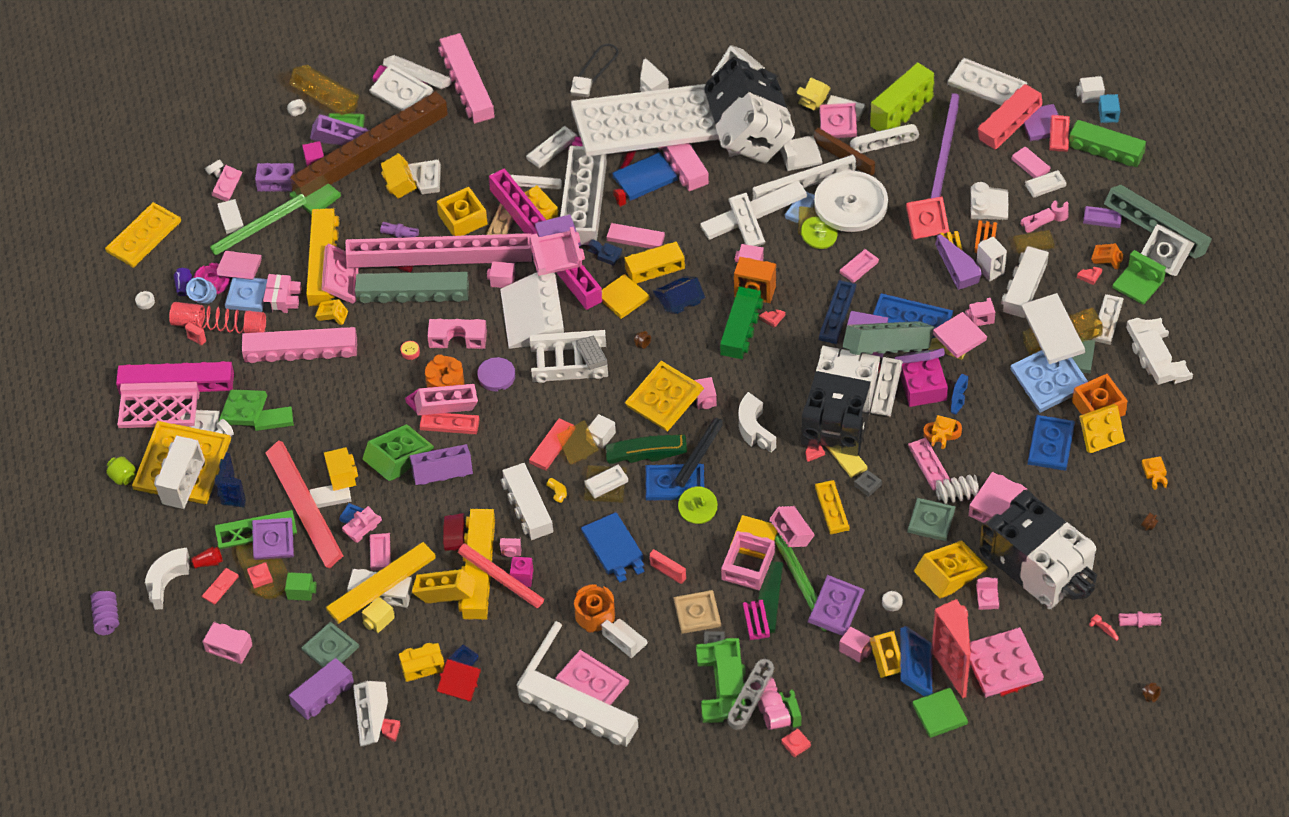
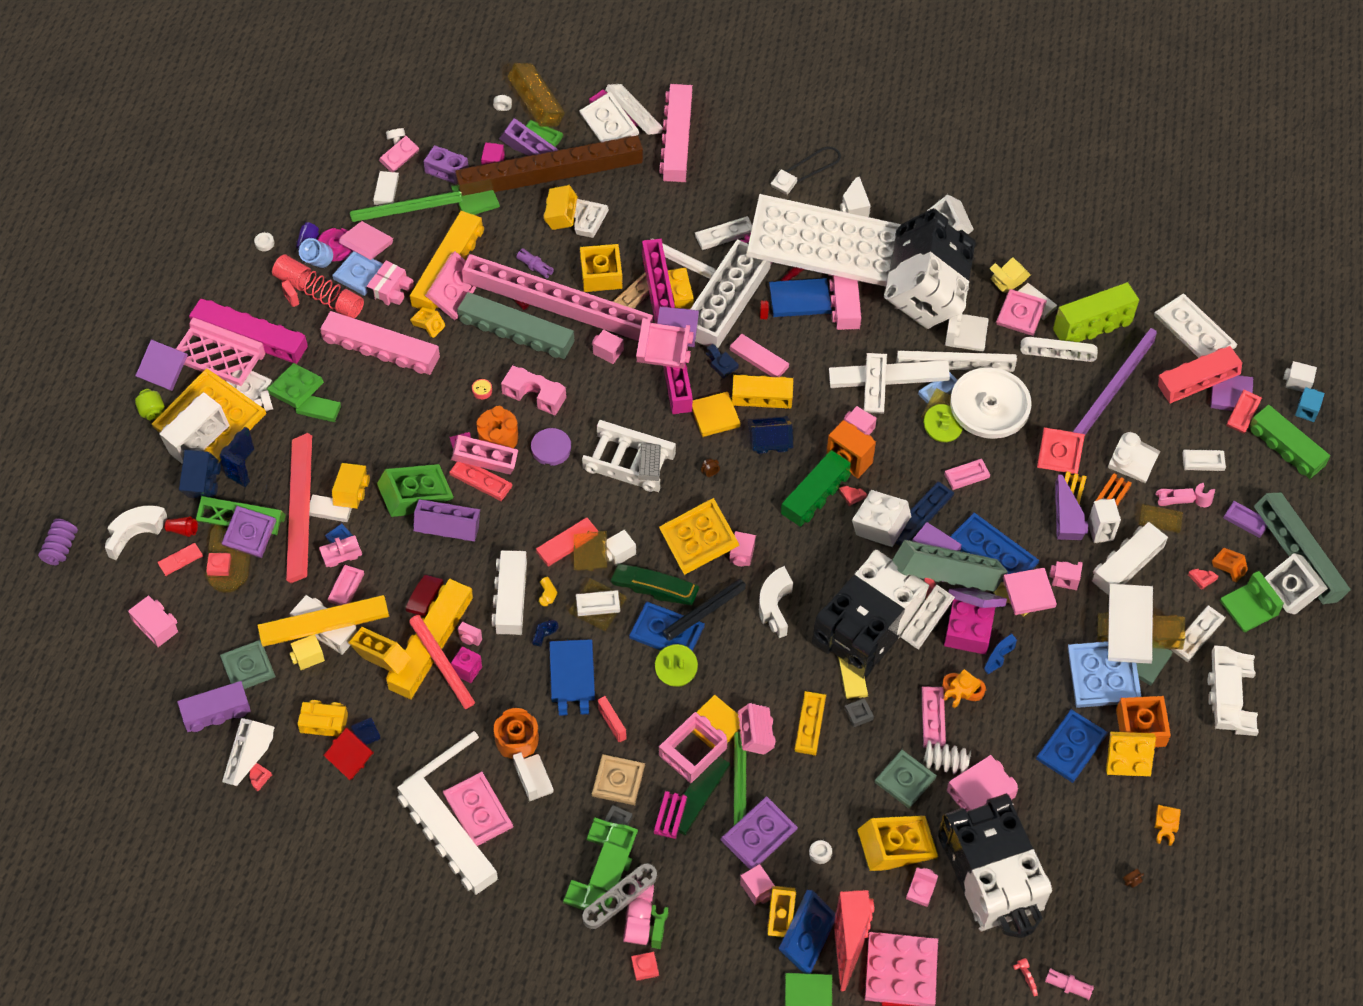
camera: 20 degrees right, 5 degrees up
(113, 434) = (161, 365): none -> medium lavender tile
(143, 234) = (297, 176): yellow tile -> none
(202, 502) = (199, 474): none -> dark blue brick
(300, 586) = (250, 591): bright green brick -> none
(531, 309) = (619, 393): white slope -> none
(571, 520) = (543, 630): none -> clear blue arm
(808, 325) = (881, 518): none -> white brick
(813, 453) = (821, 657): coral tile -> none
(843, 150) = (1011, 347): reddish brown tile -> none
(1030, 163) = (1199, 431): bright pink tile -> none

